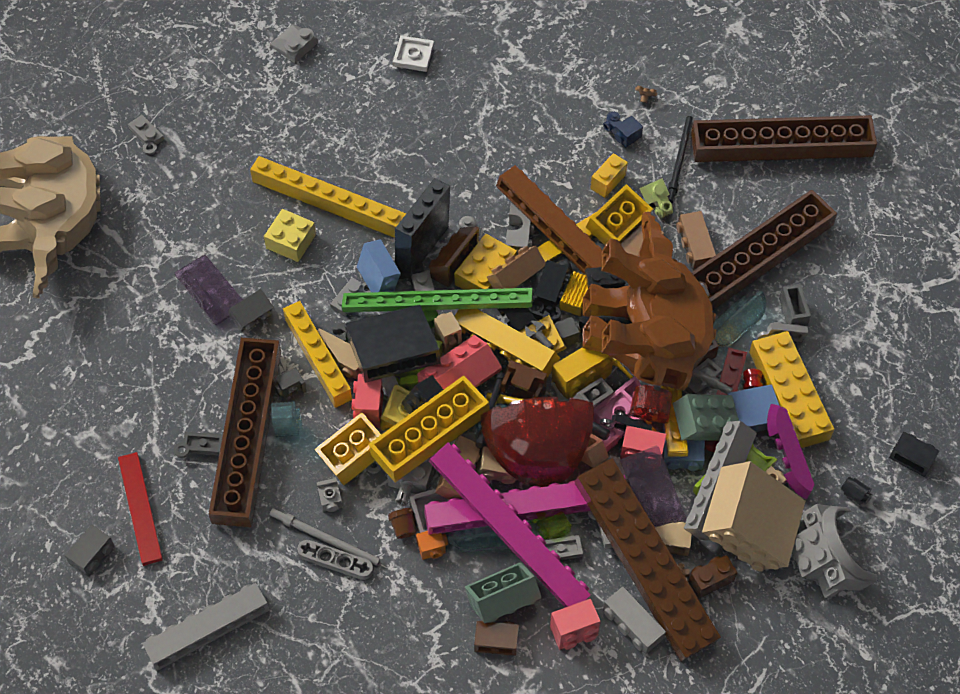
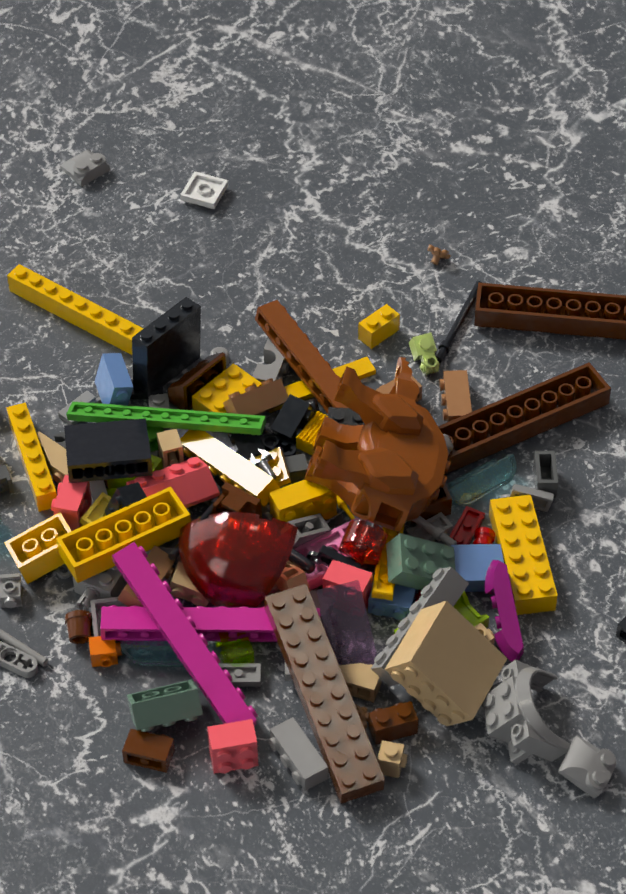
camera: 10 degrees right, 10 degrees down
(290, 235) = (33, 342): light yellow brick -> none
(618, 216) = (378, 361): yellow brick -> none
(624, 131) = (407, 287): dark blue brick -> none
(720, 612) = (391, 758): none -> tan brick
(856, 491) = (570, 661): black brick -> none
(896, 593) = (588, 766): none -> light grey slope

